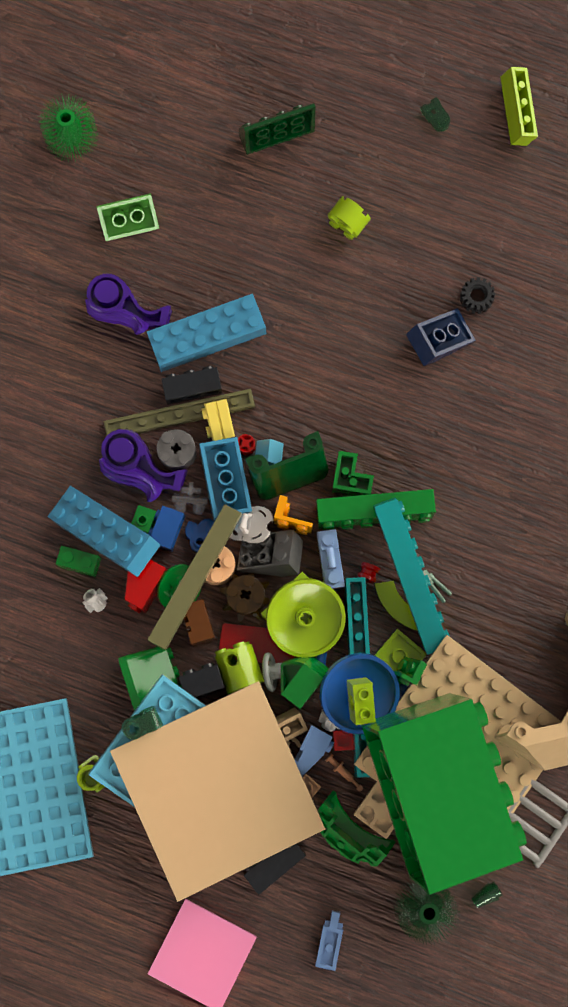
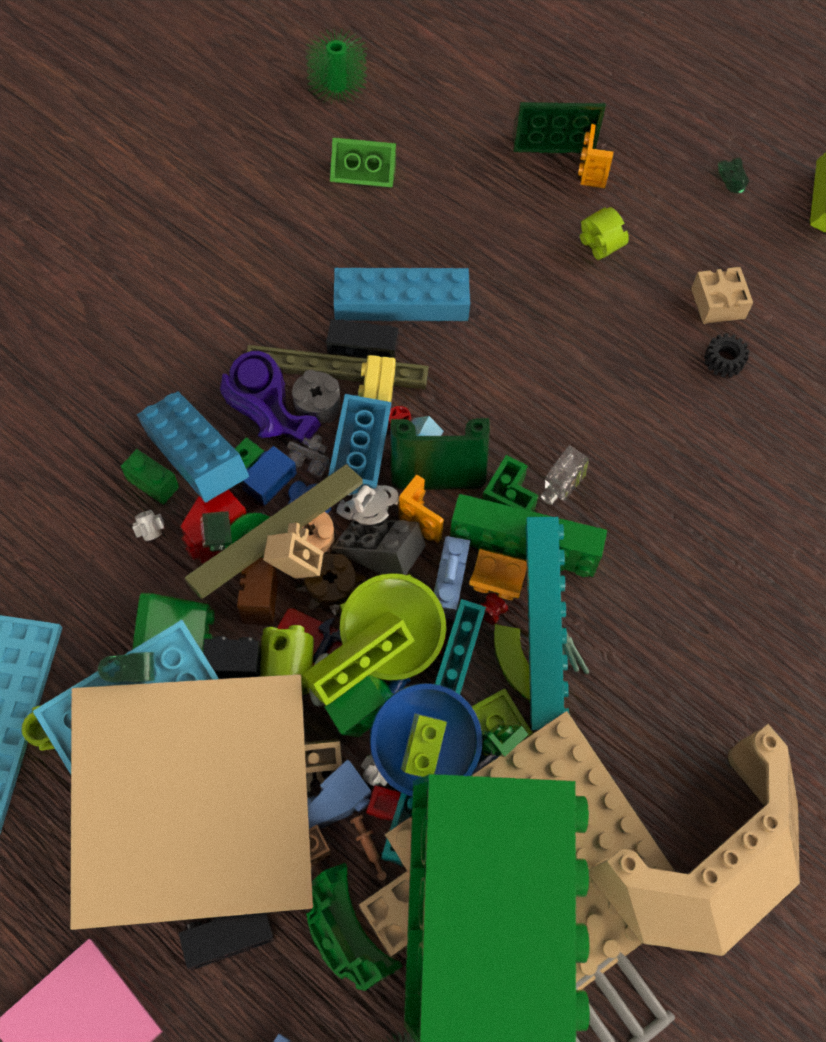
camera: 15 degrees right, 15 degrees down
(114, 303) = (313, 231): dark purple animal -> none
(153, 595) = (215, 530): none -> clear green brick
(217, 591) = (293, 553): none -> tan brick
(260, 639) = (328, 639): none -> dark blue bar
(293, 653) = (358, 658): none -> lime brick
(321, 154) = (596, 163): none -> light orange bracket
(364, 547) = (498, 574): none -> light orange bracket
(390, 442) = (565, 475): none -> clear torso
(440, 336) = (668, 382): dark blue slope -> none
(458, 241) = (722, 295): none -> tan piece

